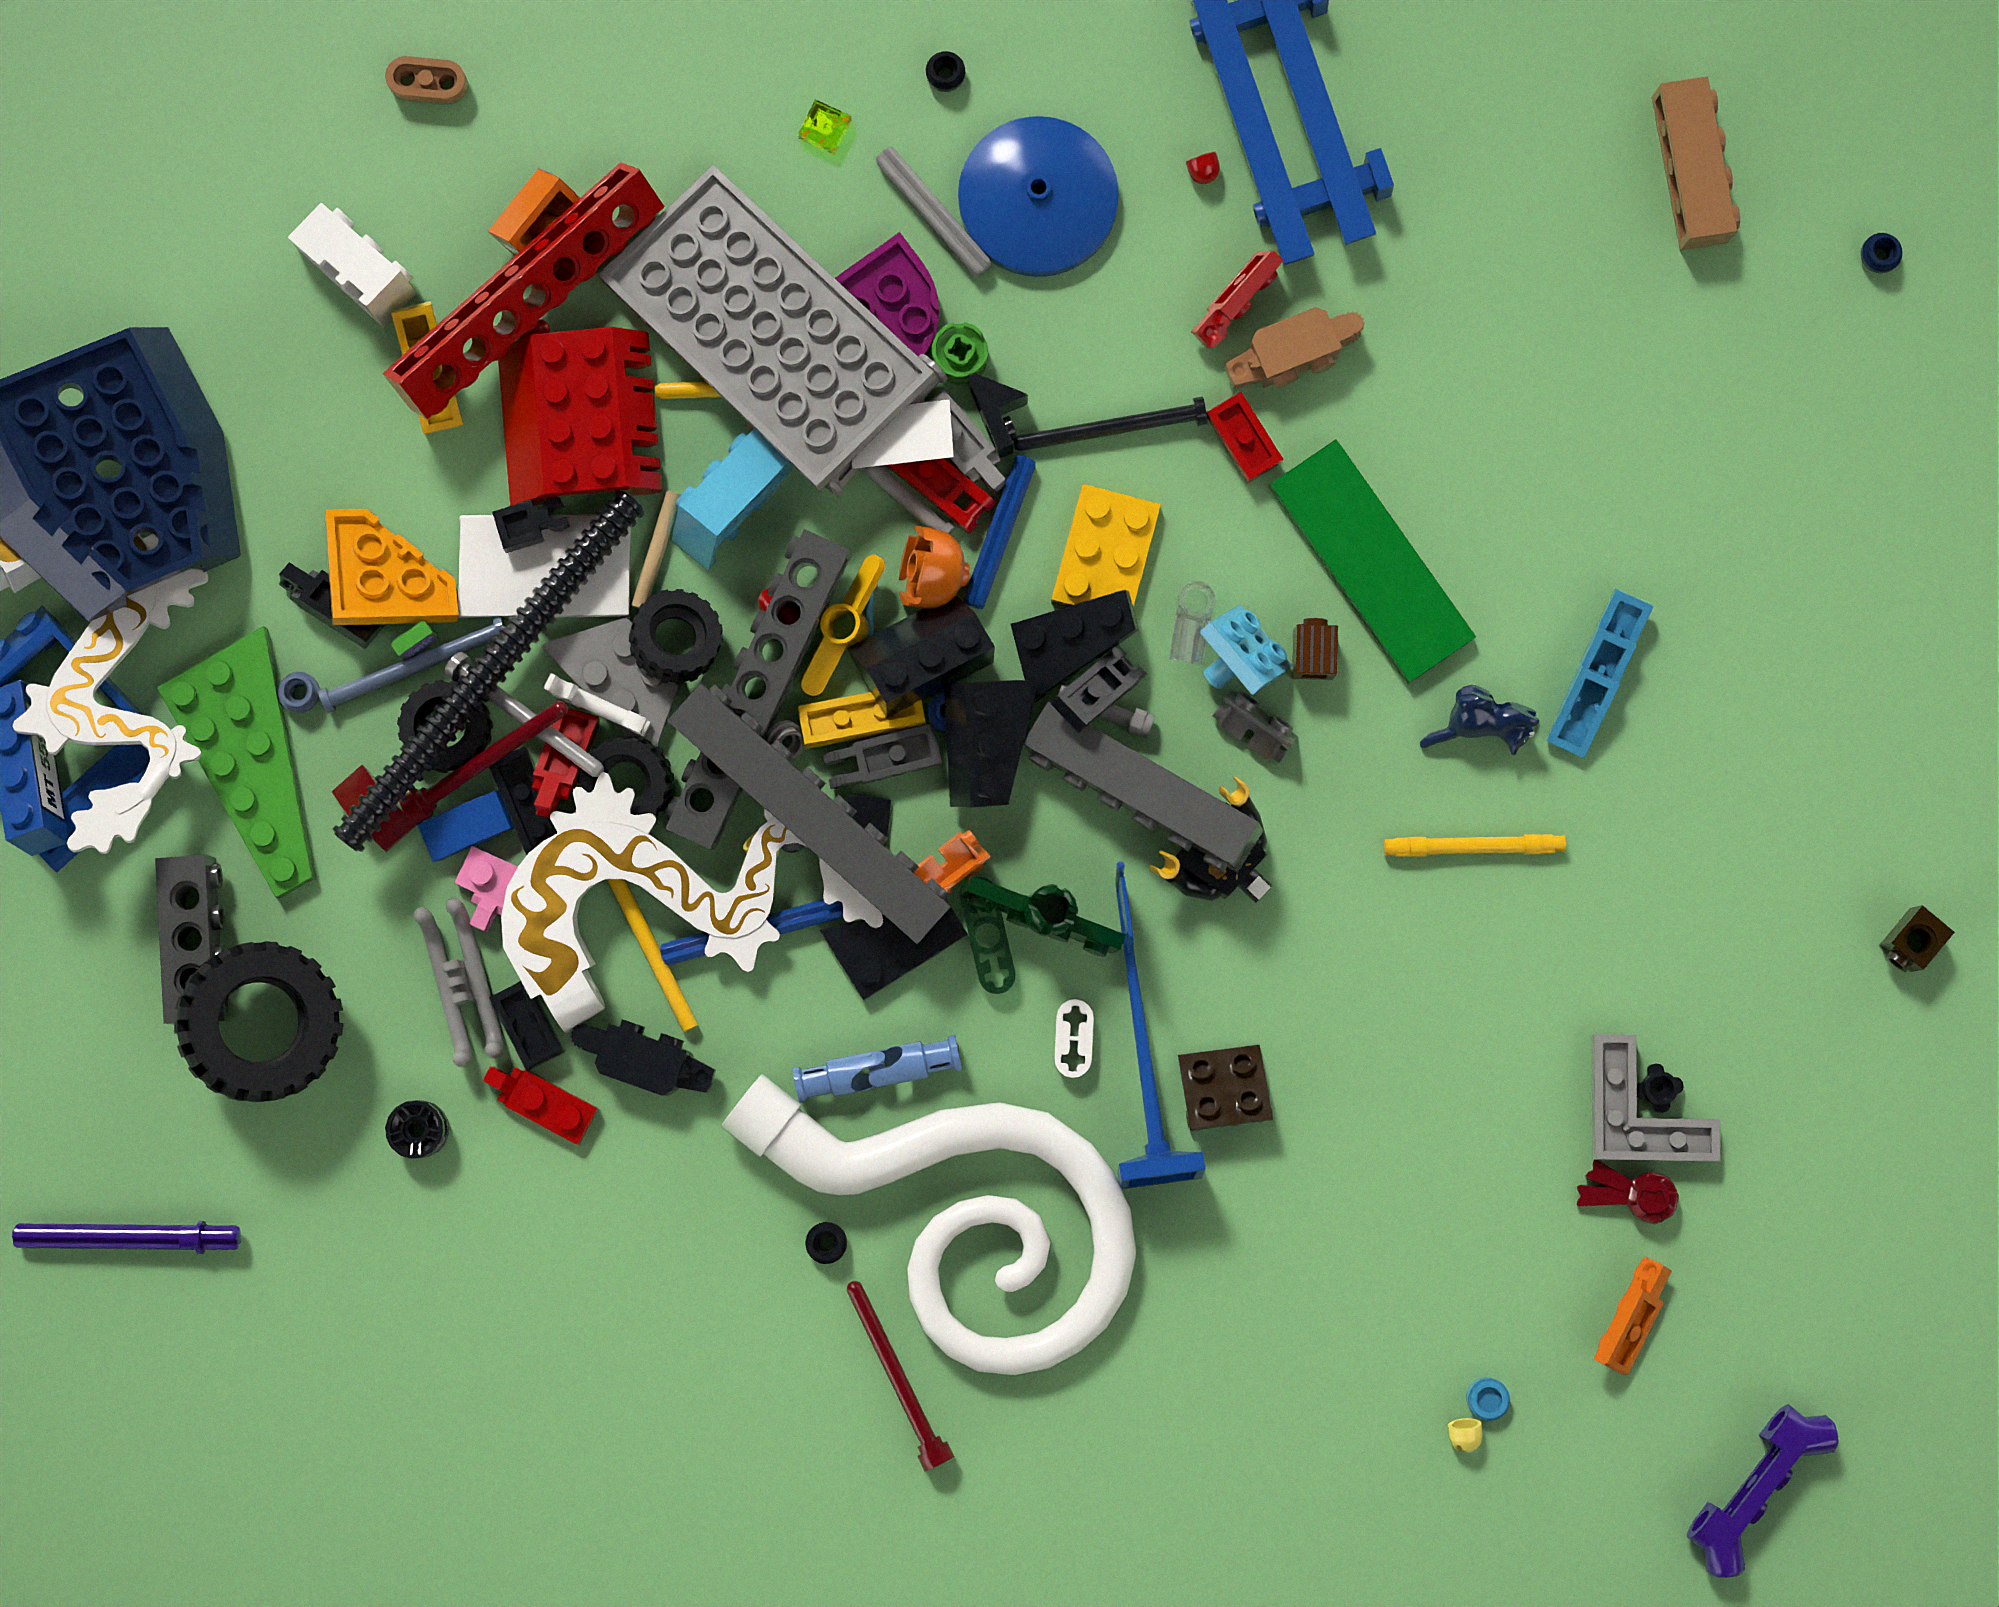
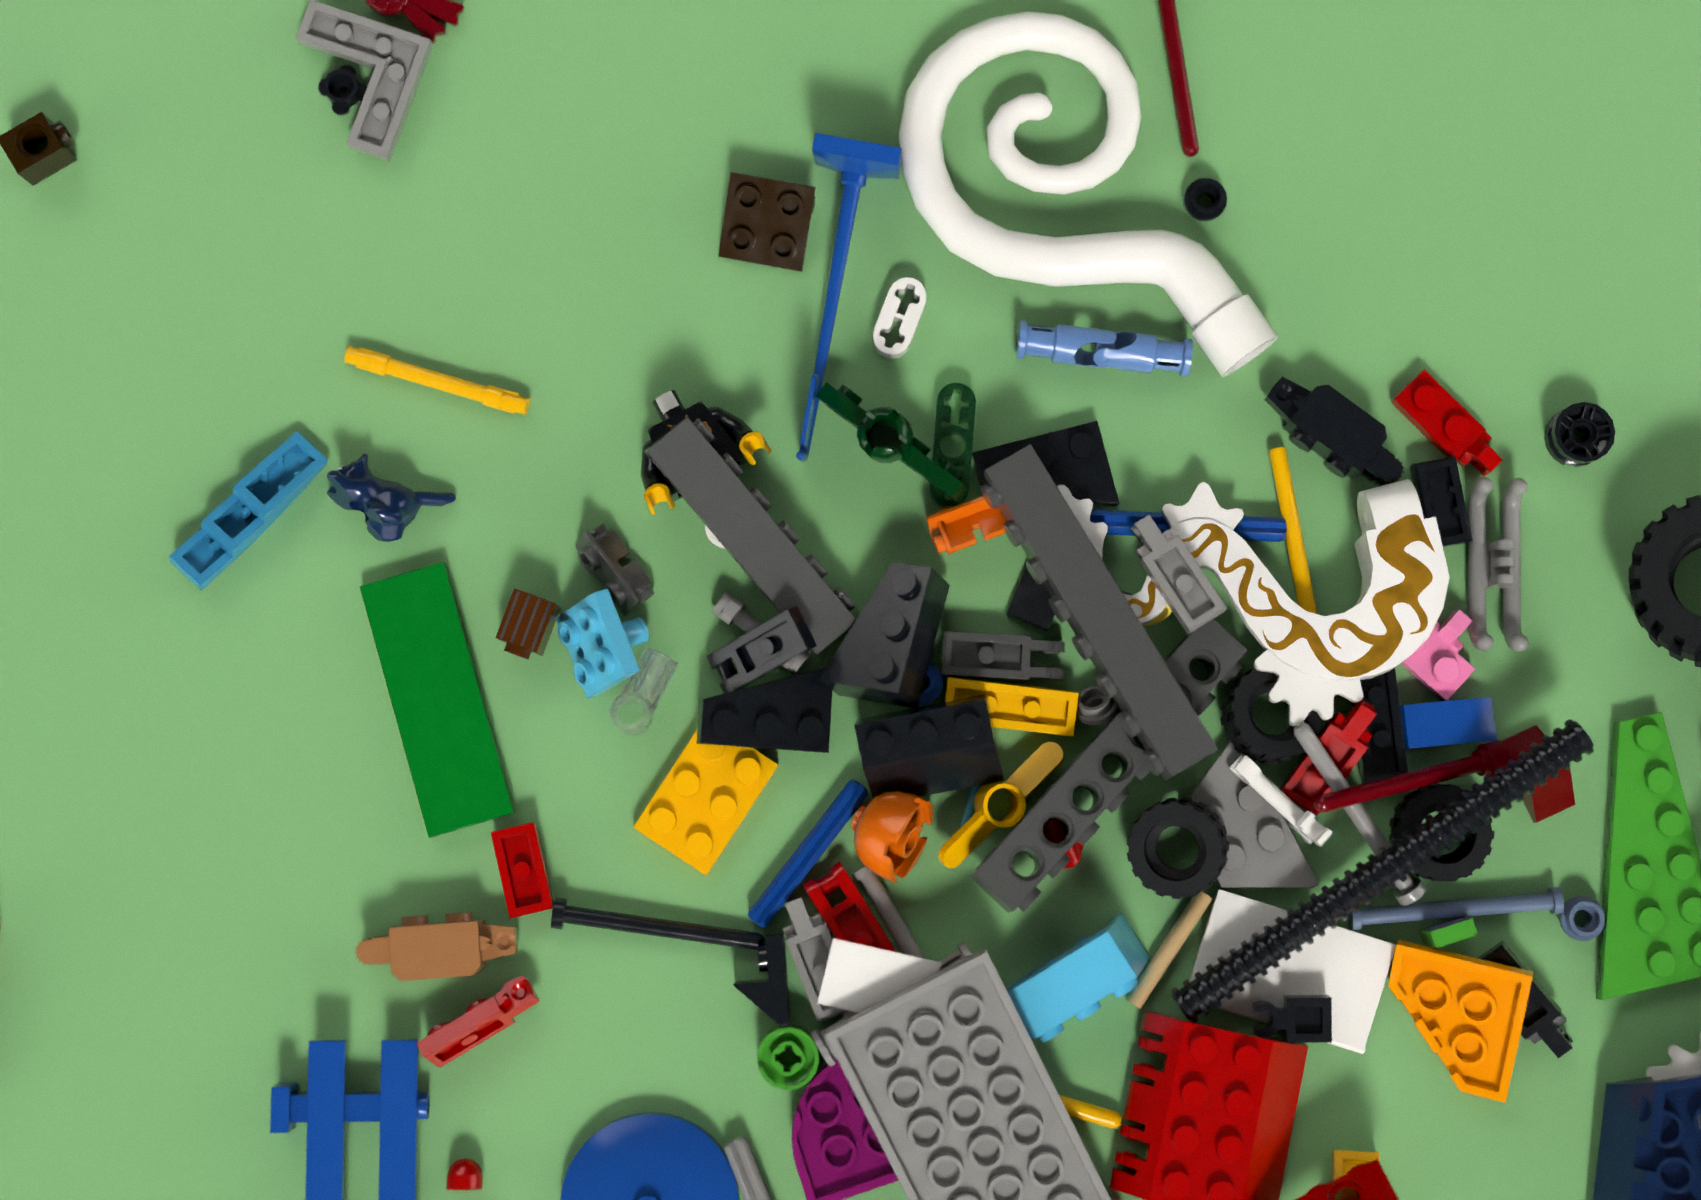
camera: 165 degrees left, 0 degrees up
(748, 871) = (1177, 575): none -> light grey hinge

